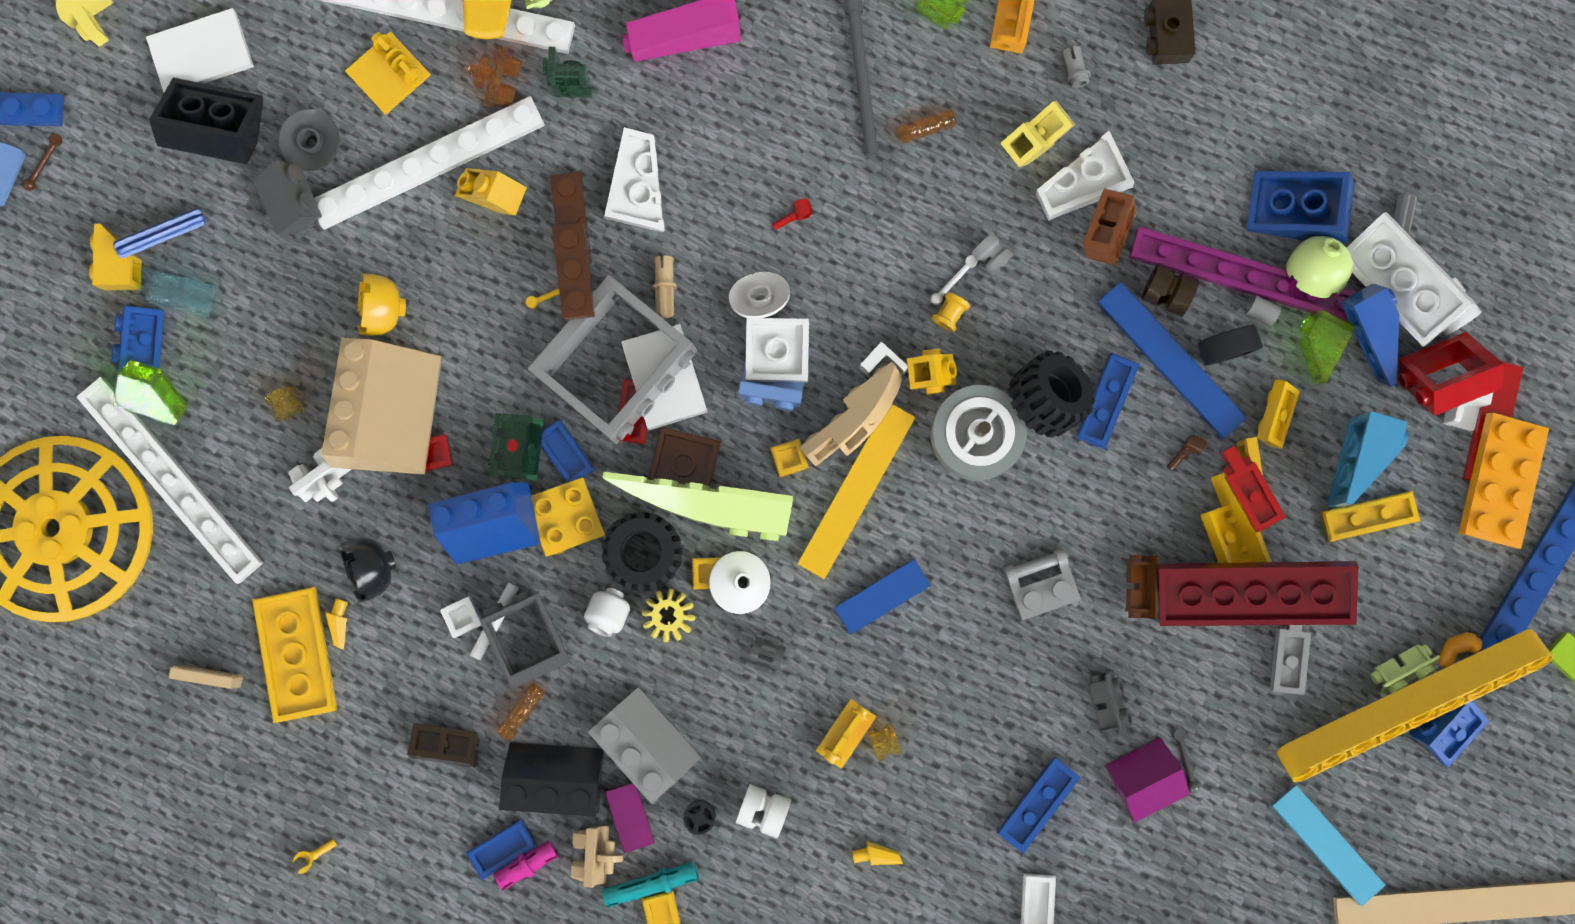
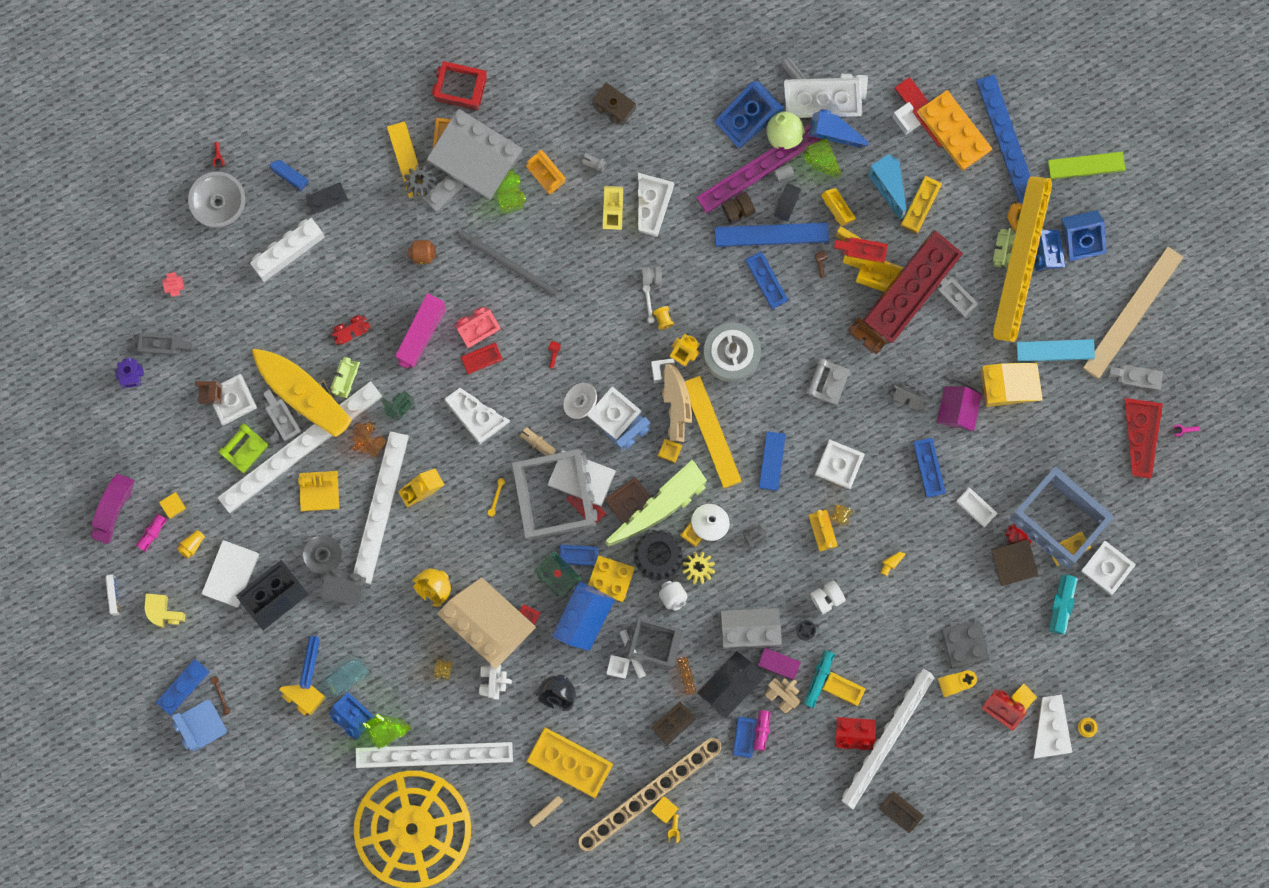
camera: 50 degrees left, 5 degrees down
(315, 792) = (656, 787): none -> tan beam
(329, 822) = (664, 809): none -> yellow tile
(337, 623) = (571, 730): yellow bar -> none
(572, 246) = (482, 469): reddish brown bracket -> none
(714, 132) = (481, 358): none -> red tile
(748, 93) = (477, 326): none -> coral bracket
(926, 126) = (563, 256): clear orange axle -> none
(948, 685) = (839, 464): none -> white tile
(1051, 394) = (742, 303): black tyre -> none
(1109, 227) = (685, 211): dark orange brick -> none
(1234, 821) = (1010, 383): none -> yellow slope
(1483, 375) = (898, 104): red window -> none
(1511, 759) = (1084, 235): none -> blue slope

